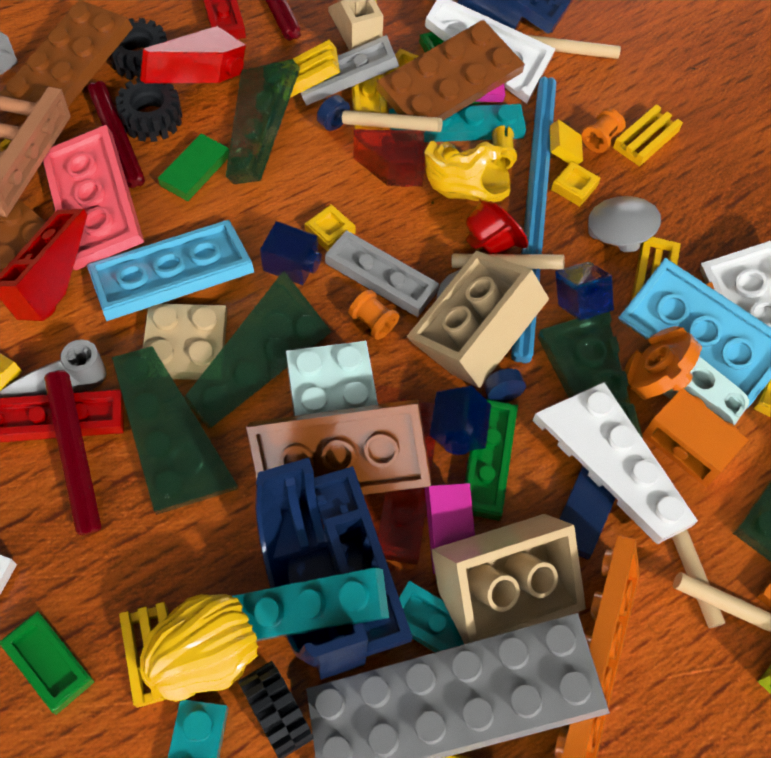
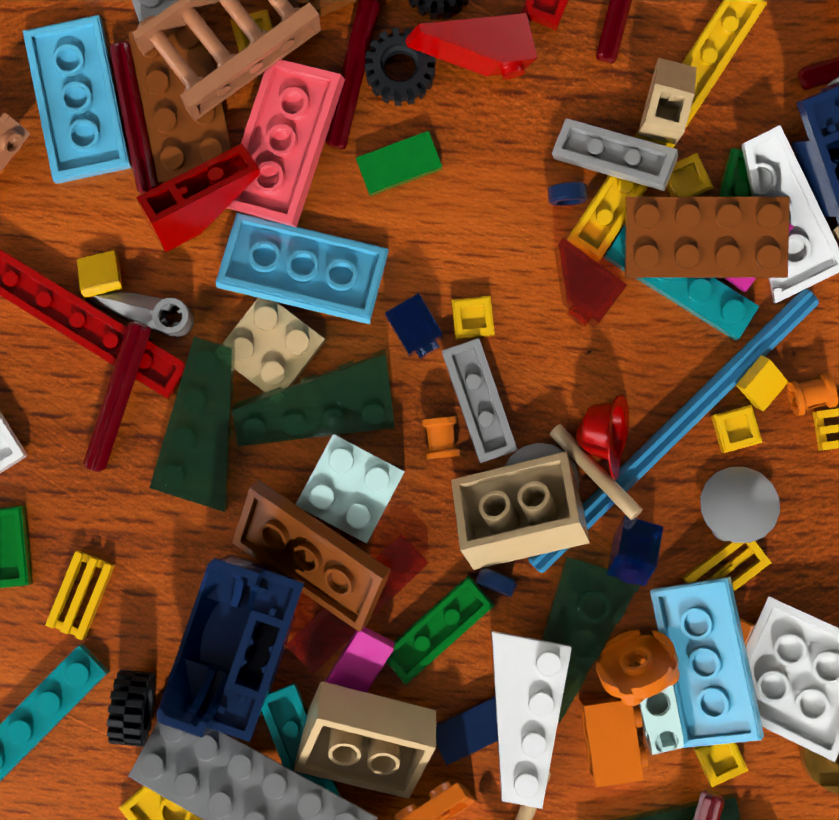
camera: 40 degrees right, 25 degrees up
(198, 647) = (105, 628): yellow hair -> none
(257, 118) = (495, 148): clear green wing -> none
(316, 66) = (548, 120): yellow tile -> none
(316, 604) = (190, 658): teal plate -> none
(395, 121) = (607, 251): tan bar -> none
(460, 420) = (431, 590): clear blue brick -> none
(467, 173) = (635, 357): yellow hair -> none
(508, 153) = (698, 344): yellow pin -> none

